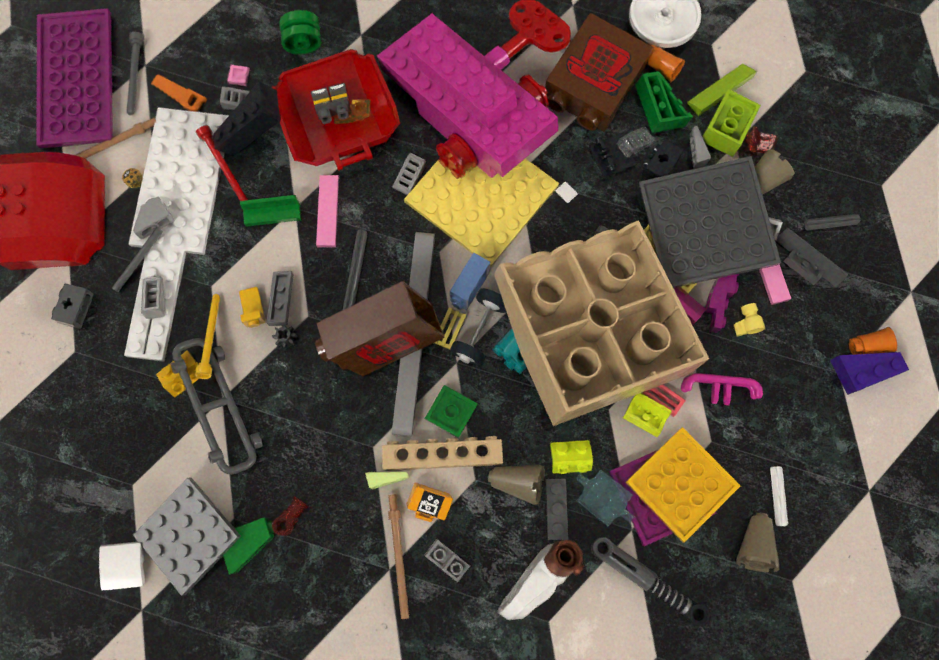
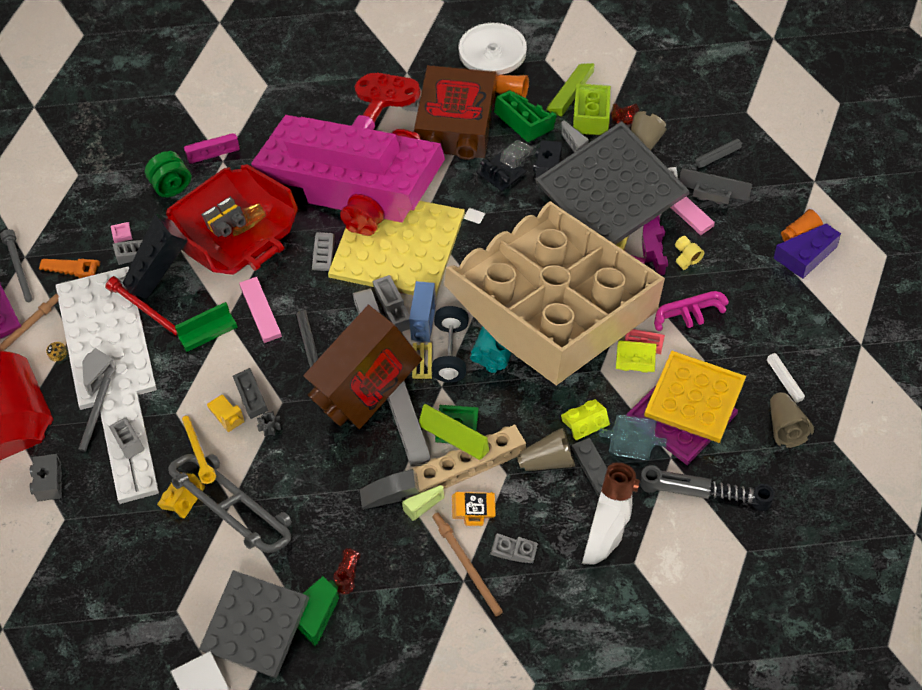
camera: 20 degrees left, 20 degrees down
(355, 16) = (211, 148): none -> dark pink panel
(360, 455) = (389, 489): none -> dark grey slope
(440, 425) = (453, 432): none -> lime slope
(447, 257) = (392, 302): none -> light grey slope

